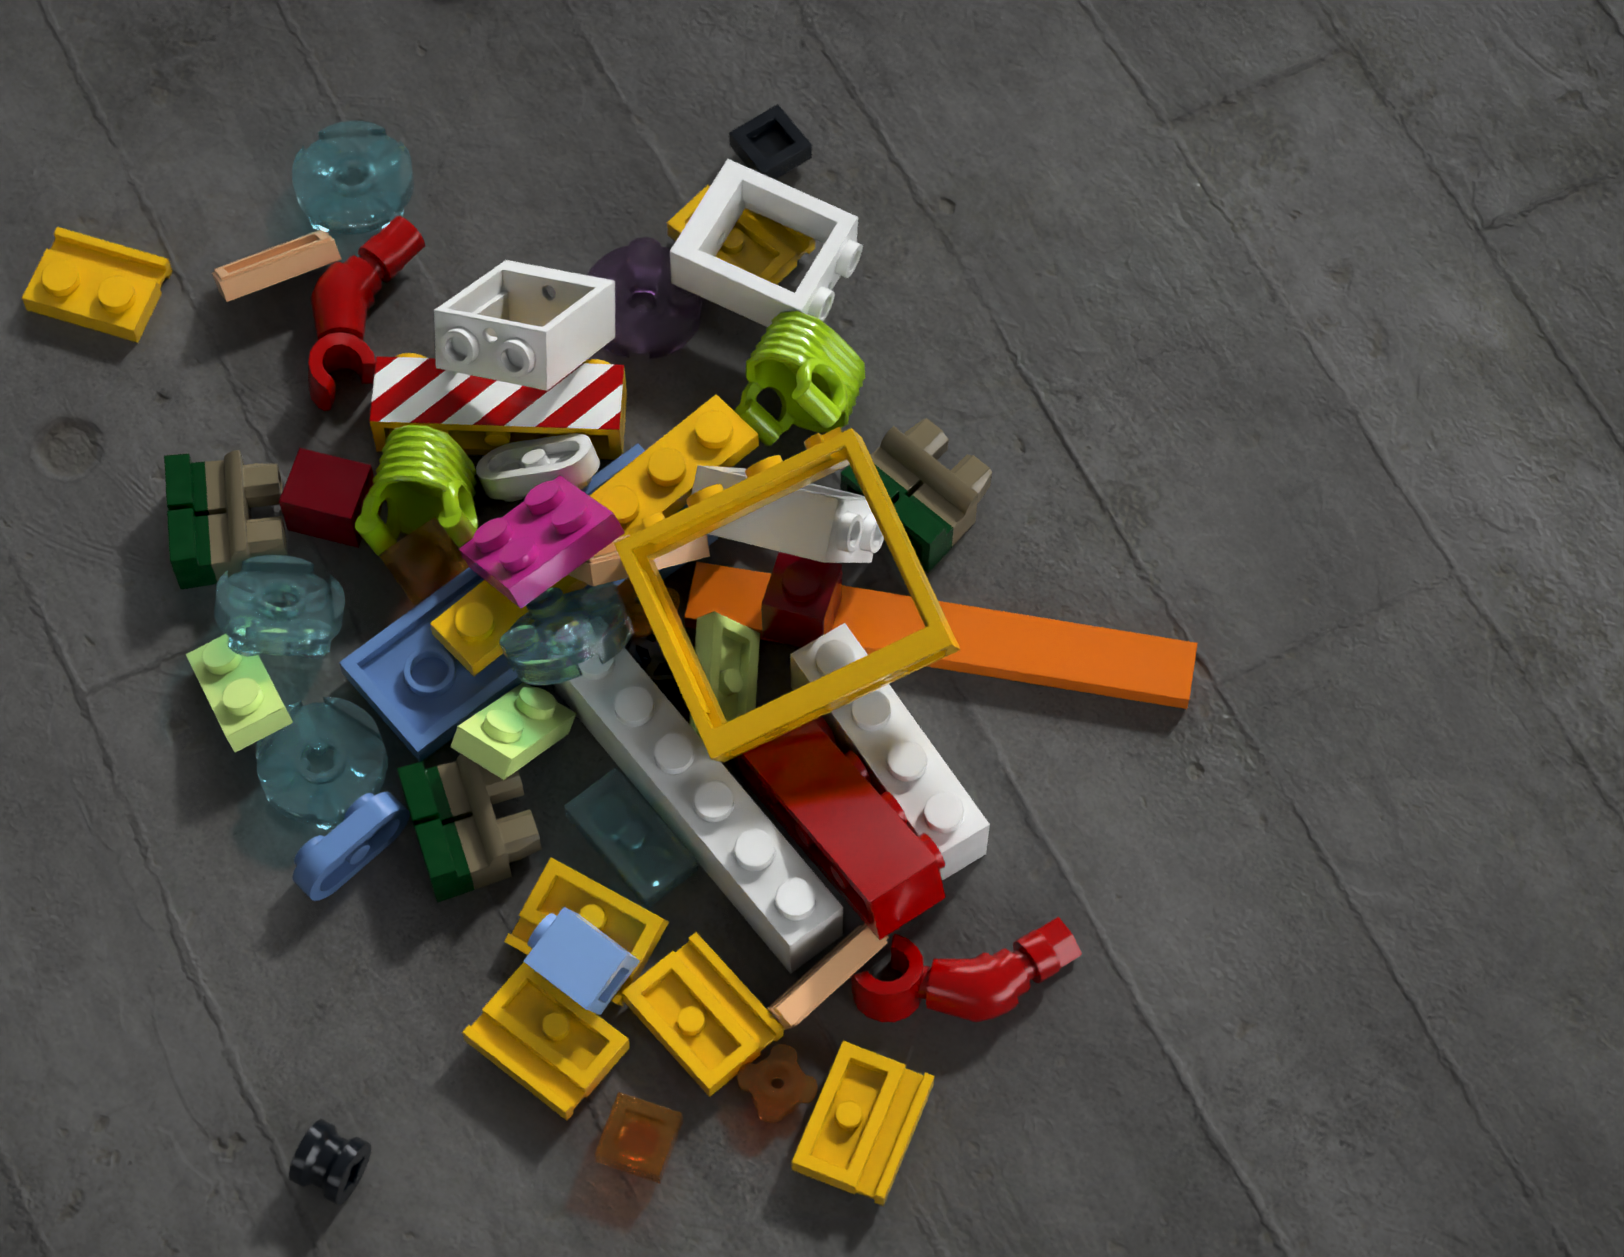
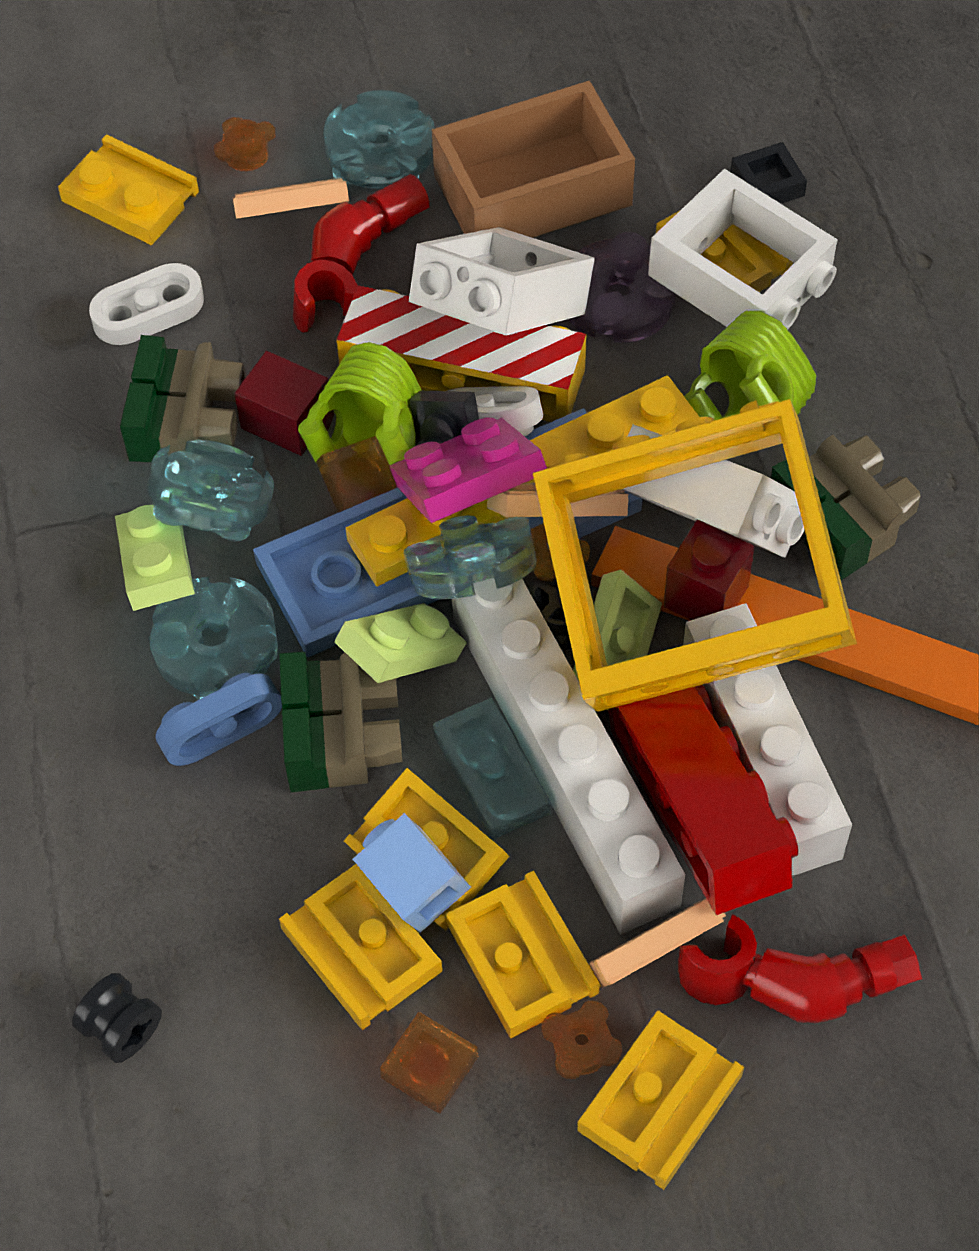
camera: 15 degrees right, 5 degrees down
(151, 413) = (143, 305): none -> white plate
(209, 221) = (244, 143): none -> clear orange plate
(499, 484) = (442, 414): none -> black plate
(526, 182) = (535, 164): none -> medium nougat piece

